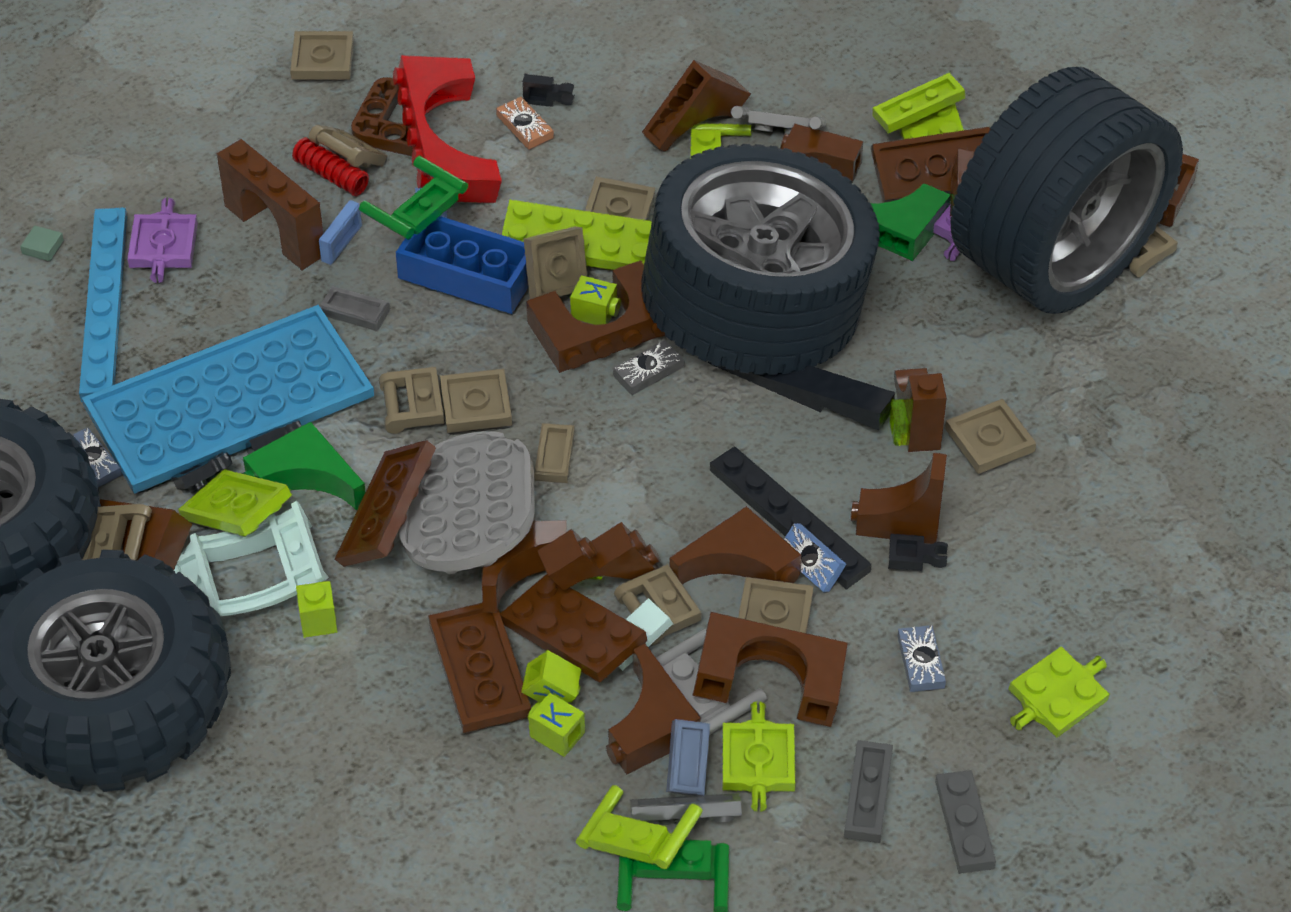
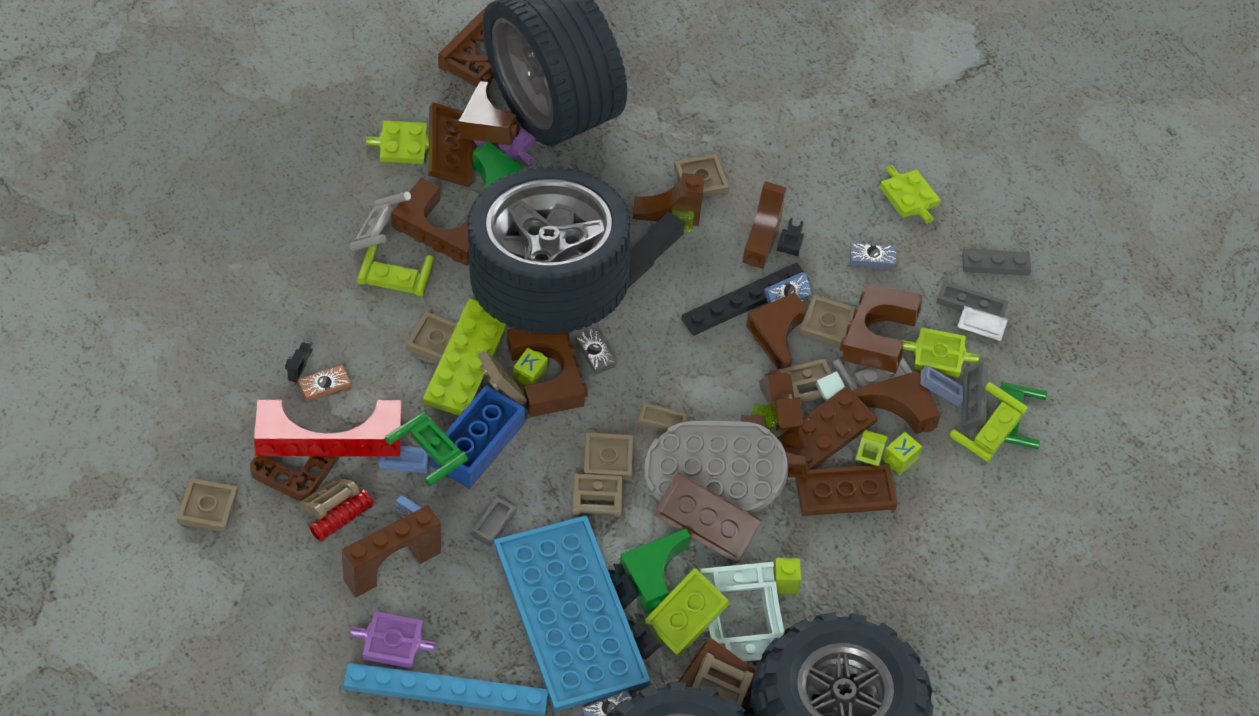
camera: 85 degrees left, 5 degrees up
(695, 97) = (348, 258): reddish brown arch -> none
(830, 807) = (982, 323): none -> tile
(918, 103) = (392, 137): lime plate -> none

